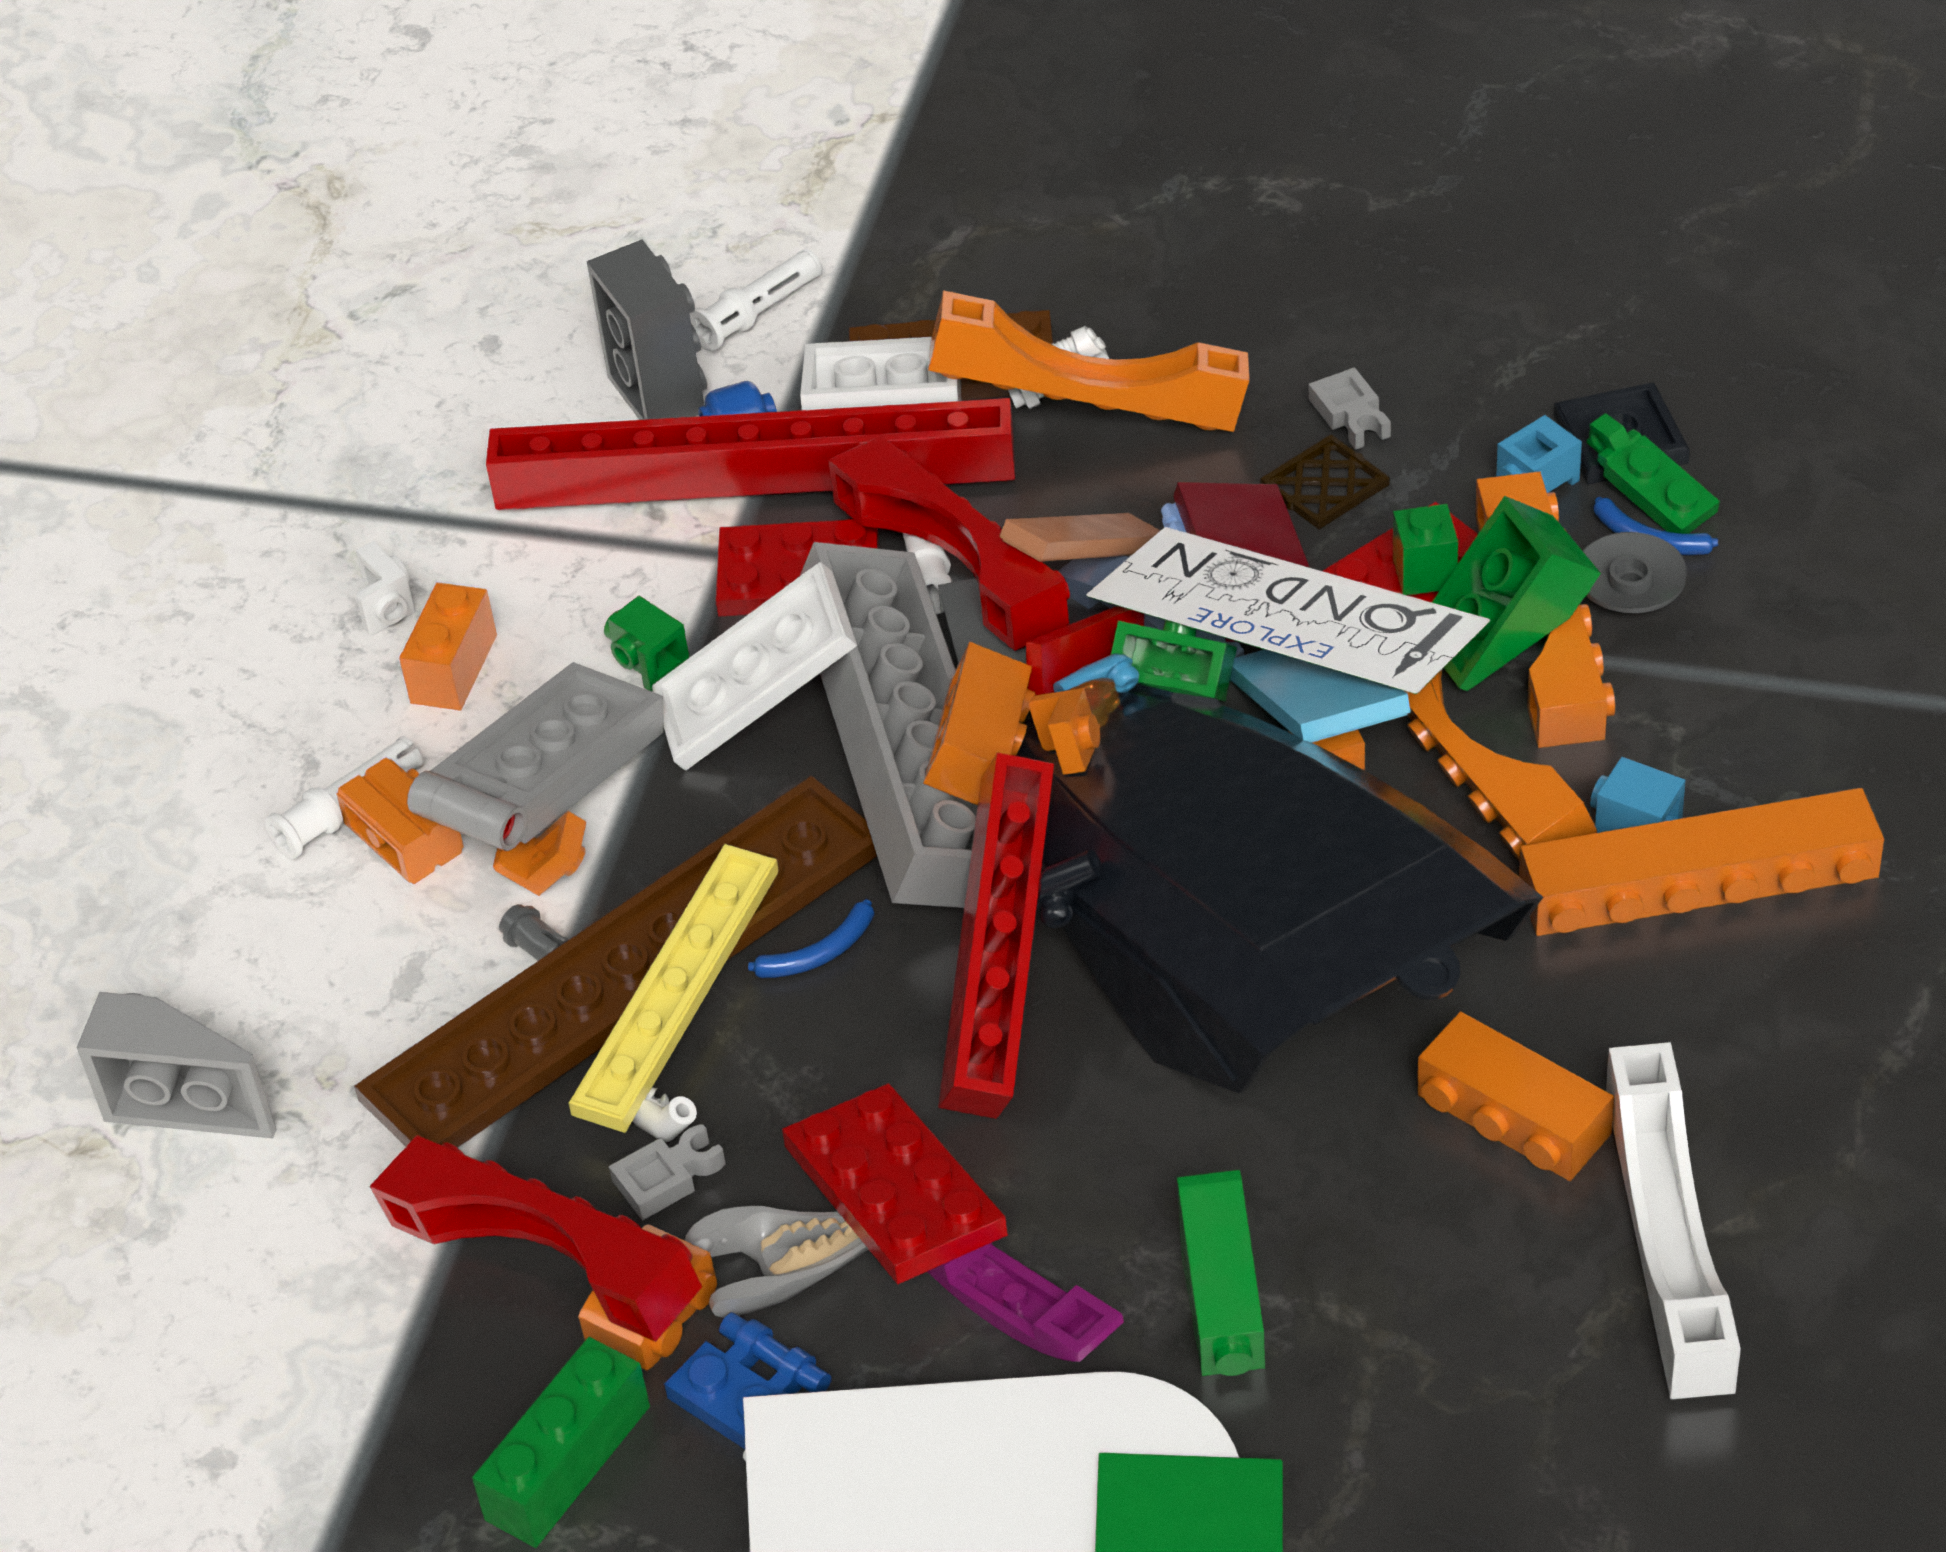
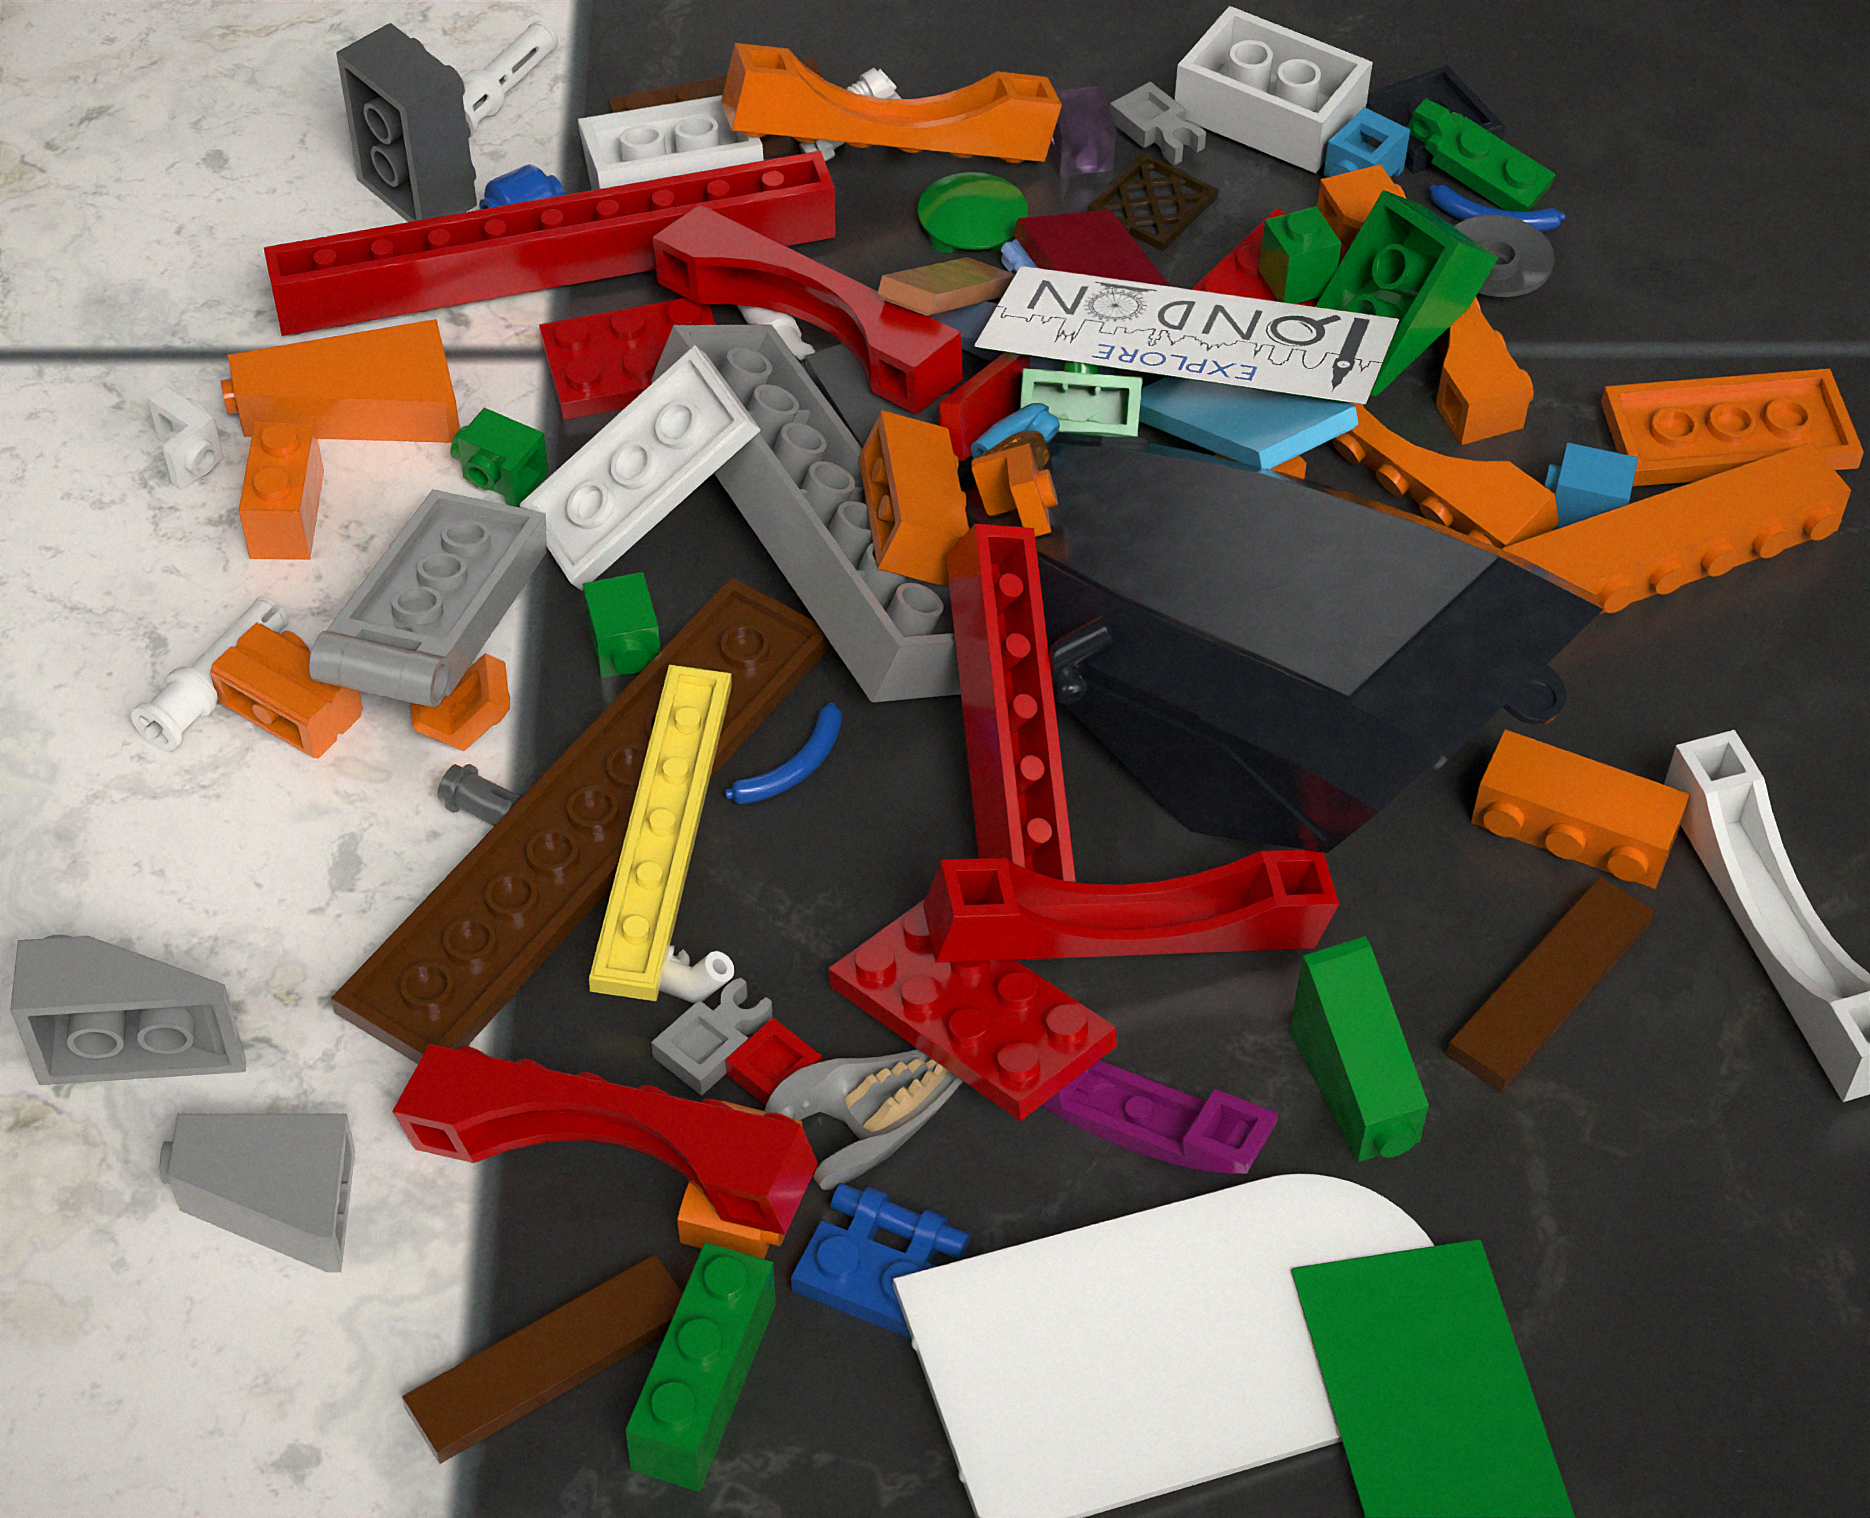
camera: 20 degrees left, 5 degrees up
(259, 1226) = (267, 1179): none -> light grey slope
(433, 1416) = (544, 1359): none -> reddish brown tile
(537, 562) = (350, 385): none -> orange slope
(702, 802) = (621, 624): none -> green brick
(705, 1195) = (769, 1059): none -> red plate
(1146, 470) = (971, 212): none -> green dish
(1165, 1131) = (1010, 913): none -> red arch
(1273, 407) = (1083, 132): none -> clear purple brick
(1434, 1248) = (1550, 984): none -> reddish brown tile
(1463, 384) = (1271, 87): none -> white brick
(1774, 758) = (1720, 423): none -> orange plate

